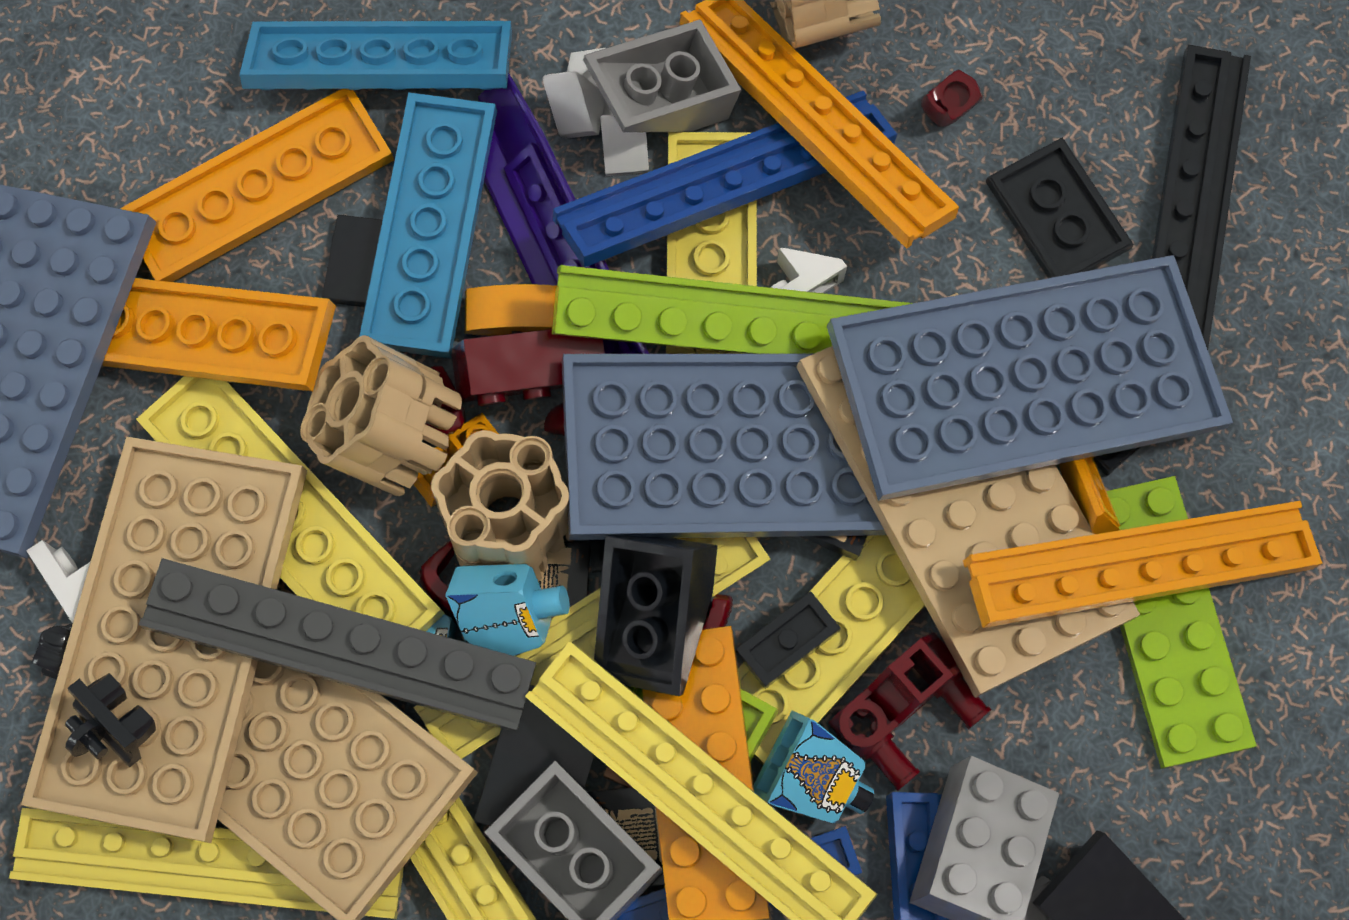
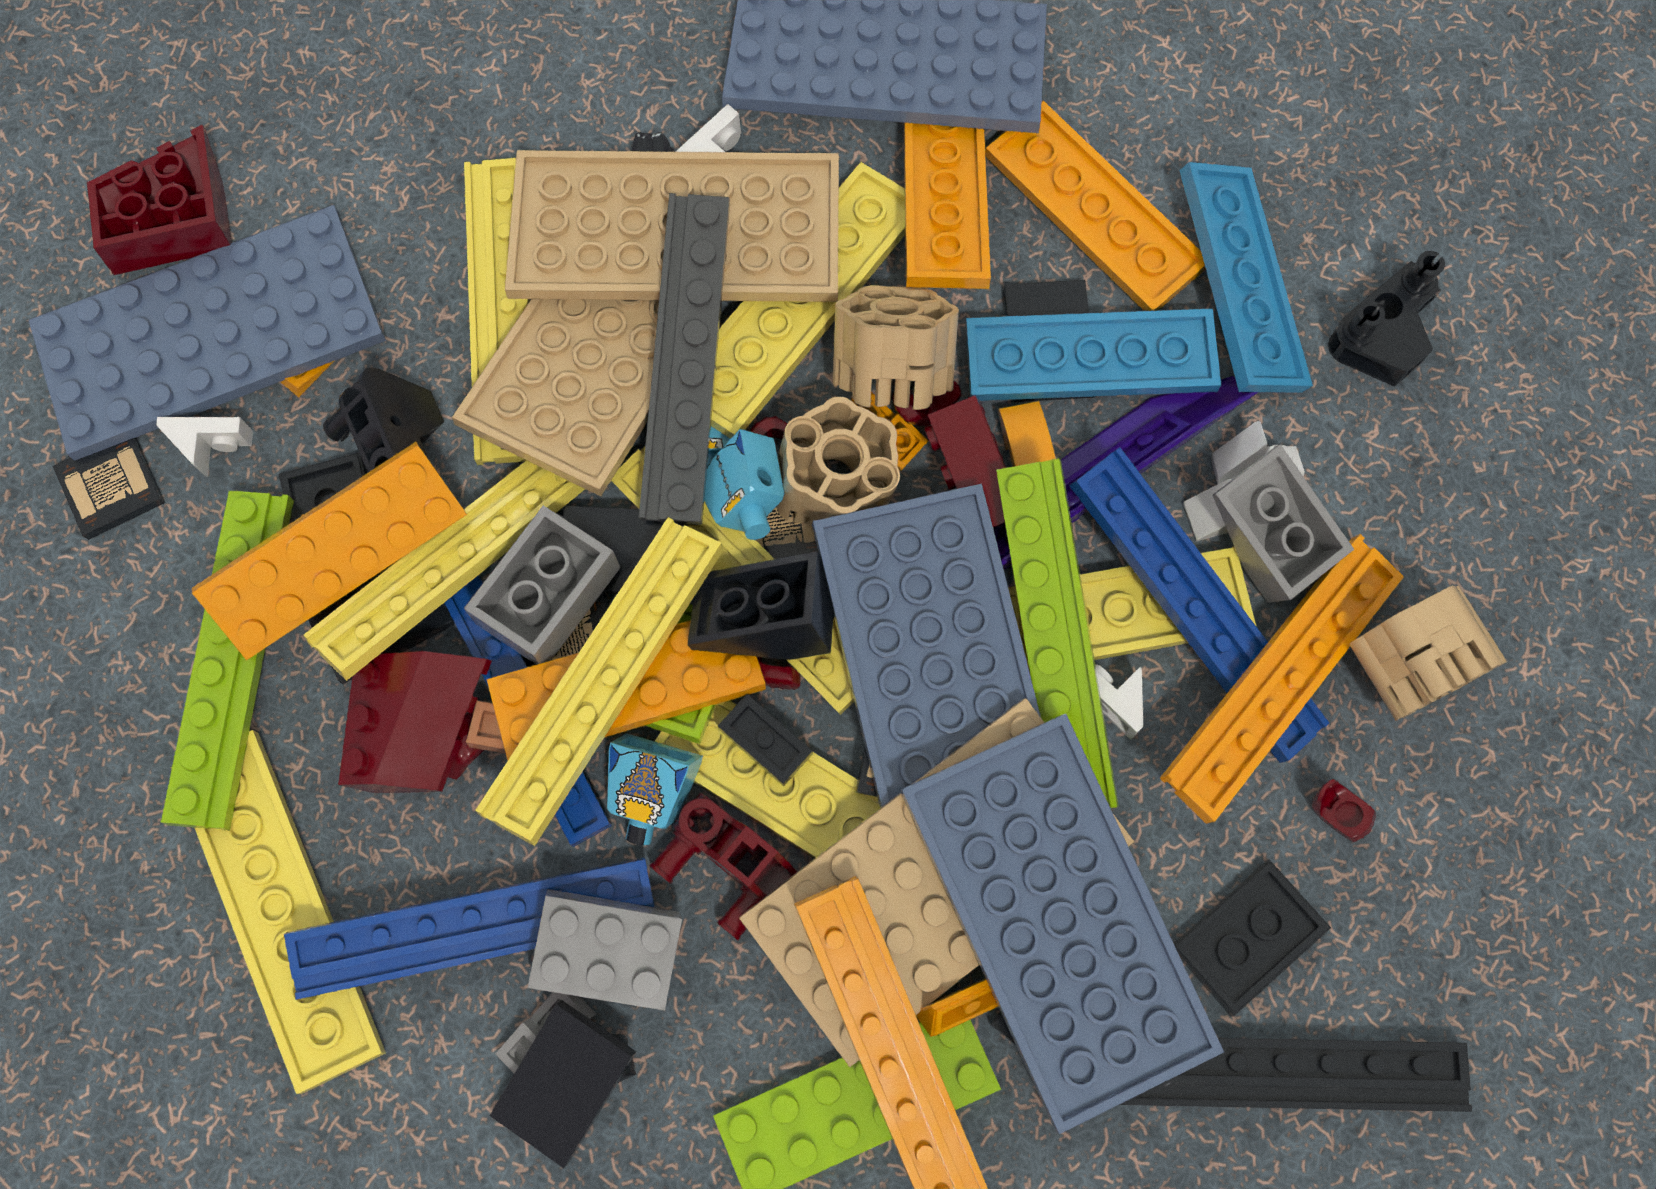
camera: 80 degrees right, 0 degrees up
(95, 707) = (579, 205): black hips -> none

